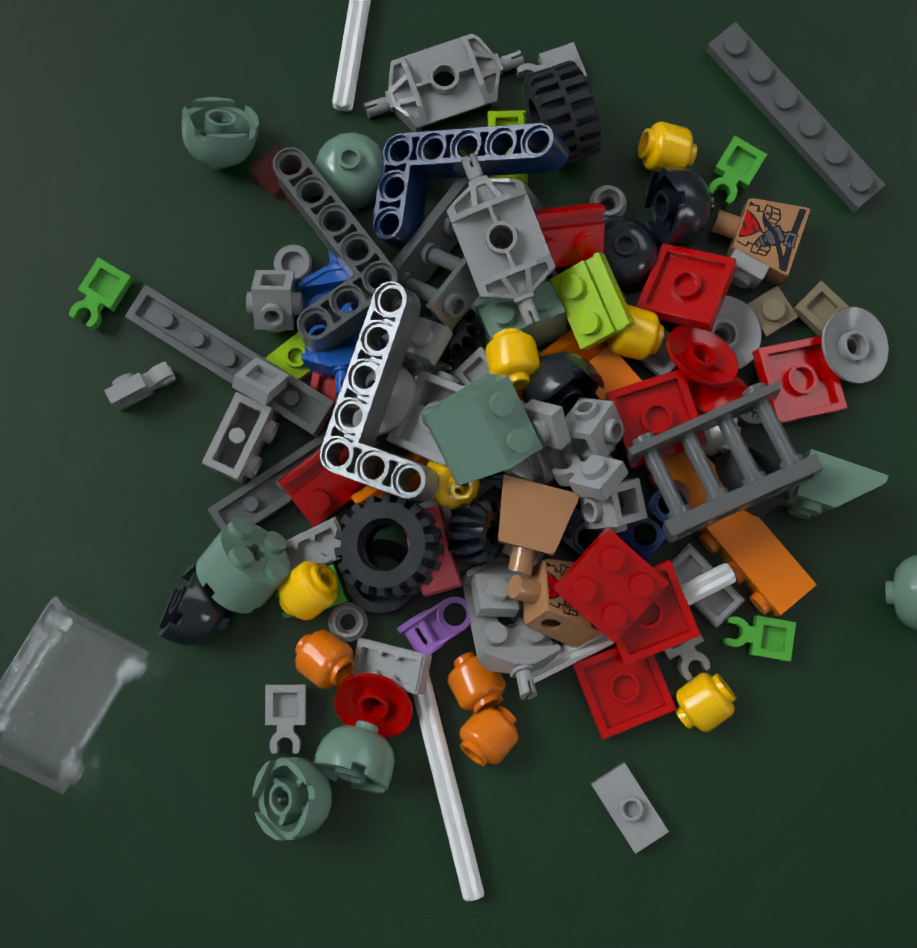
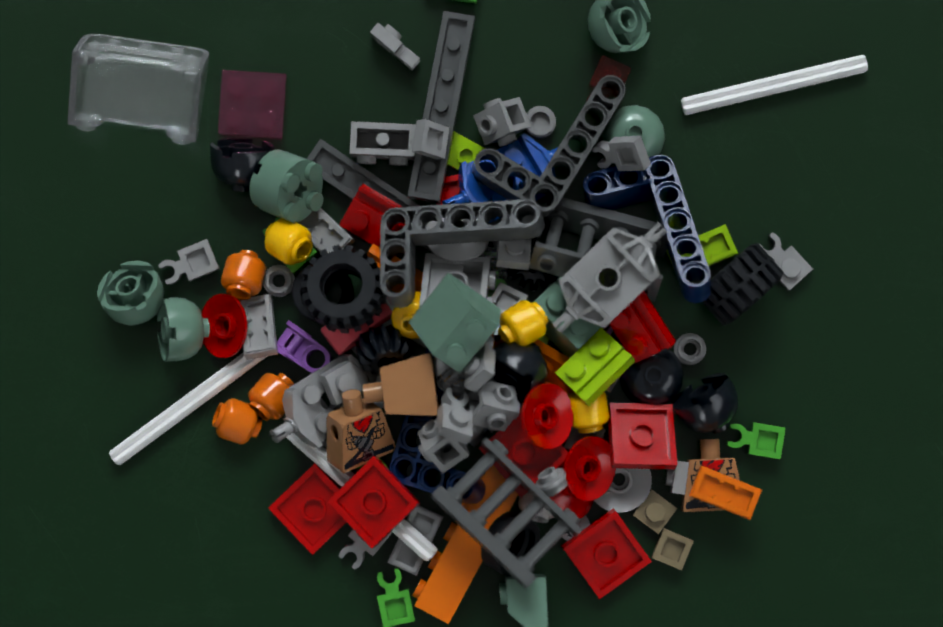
camera: 65 degrees right, 5 degrees up
(136, 572) = (252, 104): none -> clear pink plate
(367, 175) = (625, 152): none -> light grey plate
(423, 102) = (744, 204): light grey plate -> none
(610, 585) = (380, 465): red plate -> none
(629, 372) = (547, 416): none -> red dish
(629, 807) = (225, 548): light grey plate -> none
(666, 146) = (753, 378): yellow head -> none
(704, 396) = (552, 481): none -> light grey plate
(705, 702) = (326, 574): yellow head -> none
(786, 219) = (725, 492): none -> orange plate
(795, 117) = (825, 470): dark grey plate -> none
(865, 341) = (653, 599): light grey dish -> none

